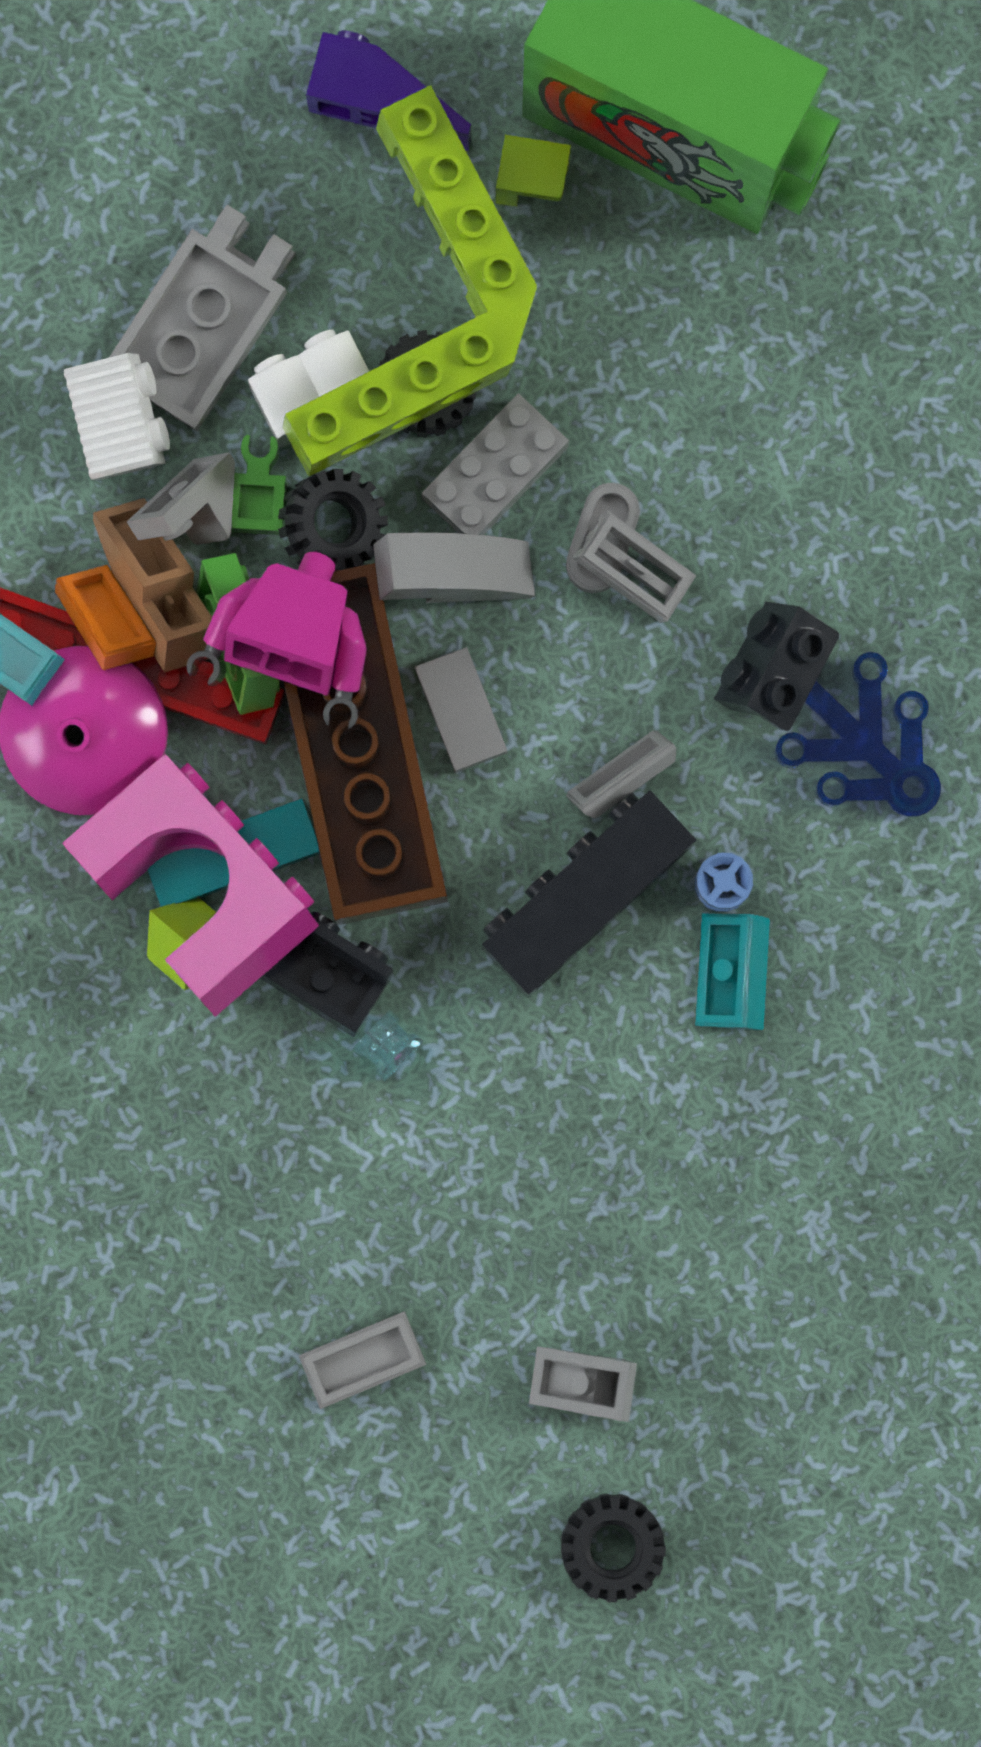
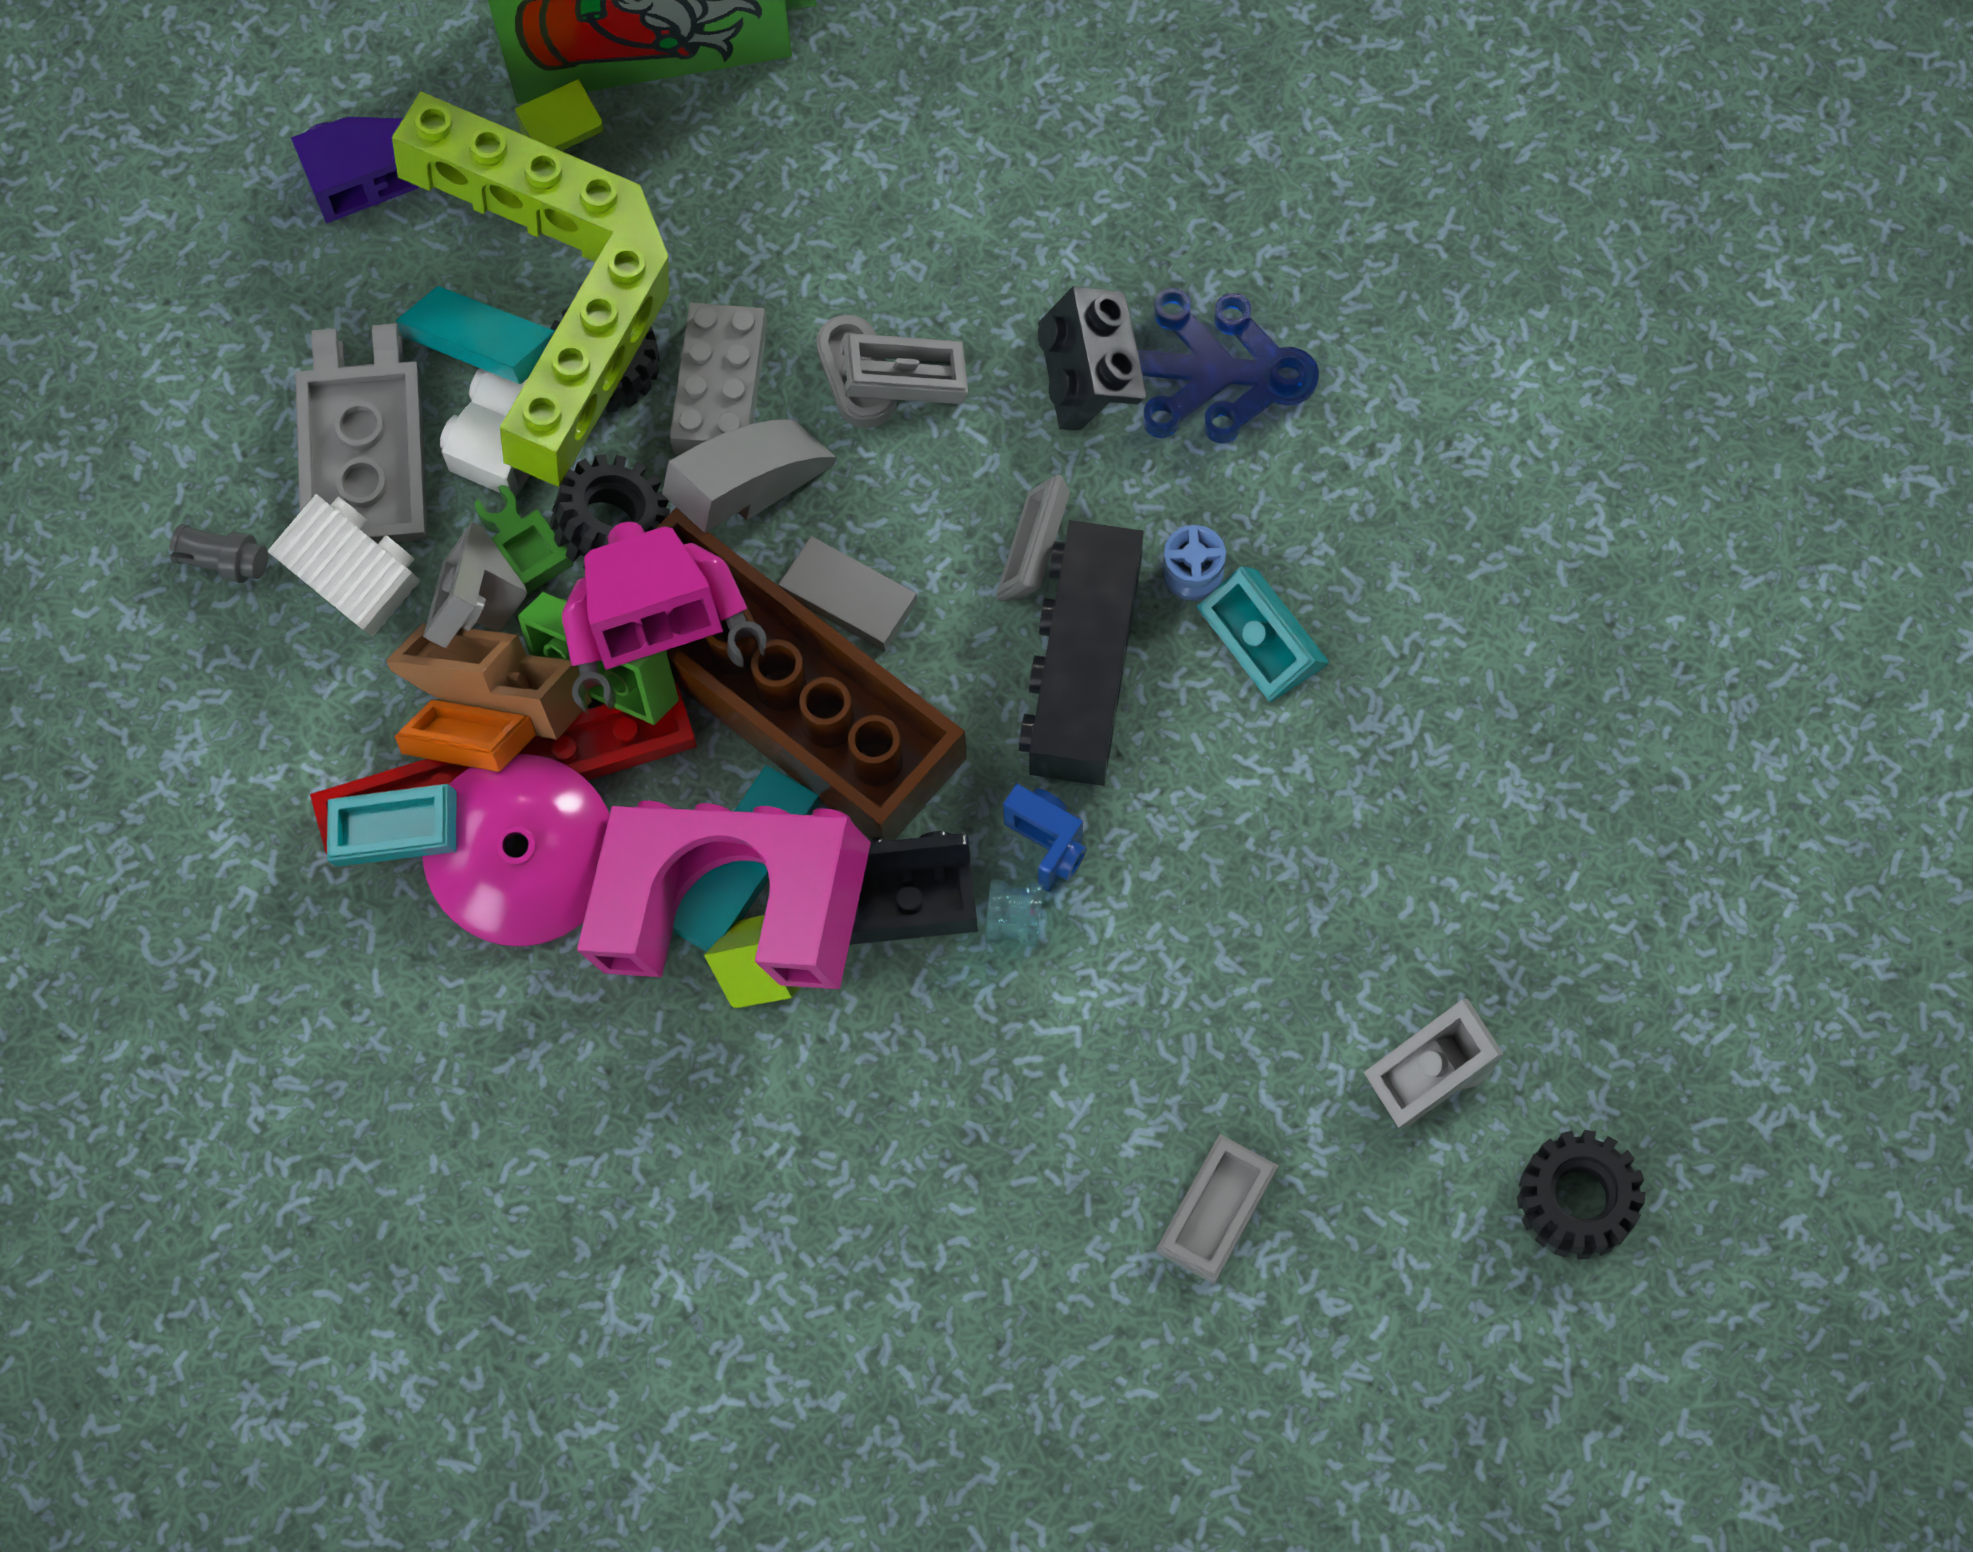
camera: 35 degrees left, 15 degrees down
(46, 343) = (232, 555): none -> dark grey animal
(342, 304) = (476, 333): none -> teal tile
(462, 991) = (1045, 821): none -> blue bracket

